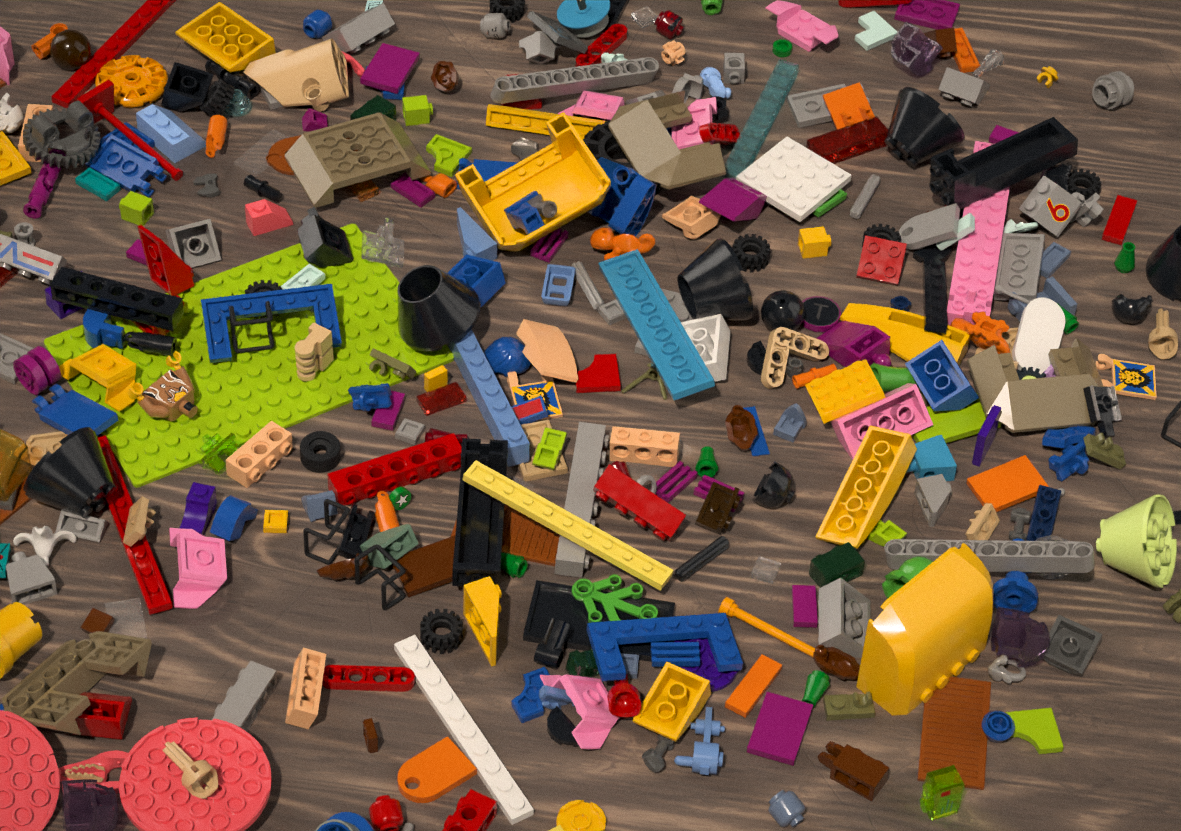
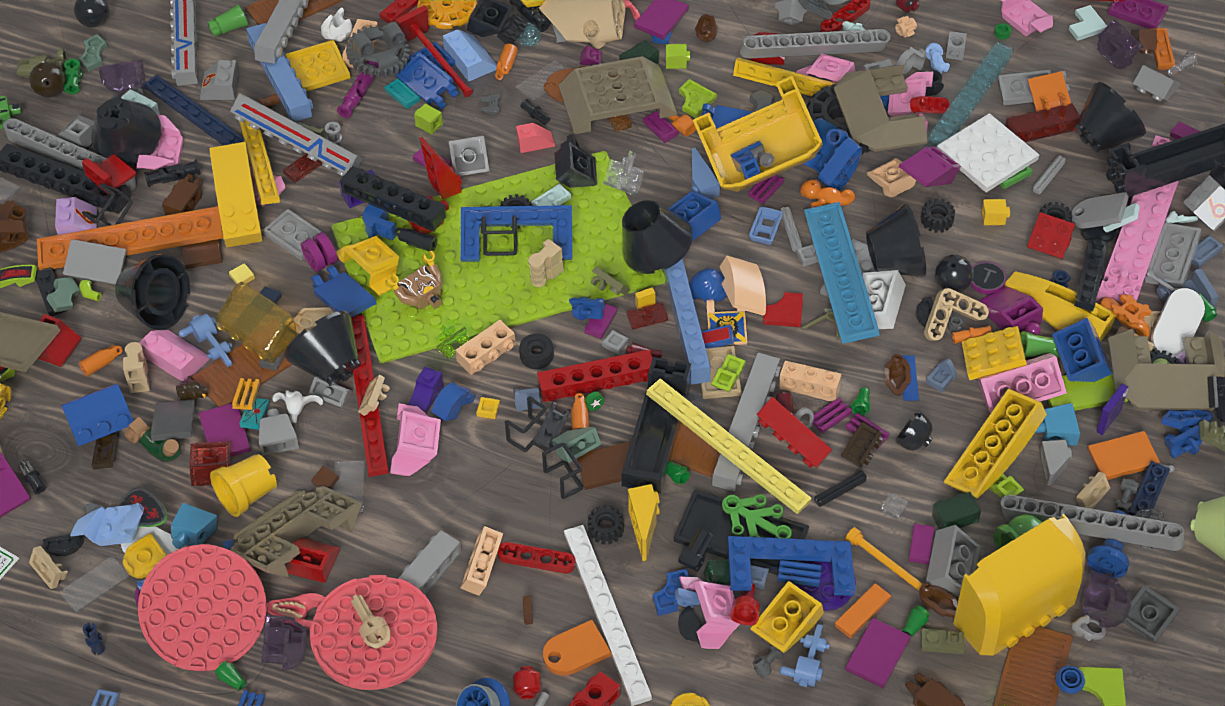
camera: 15 degrees right, 5 degrees up
(343, 569) = (534, 458): reddish brown arm -> none

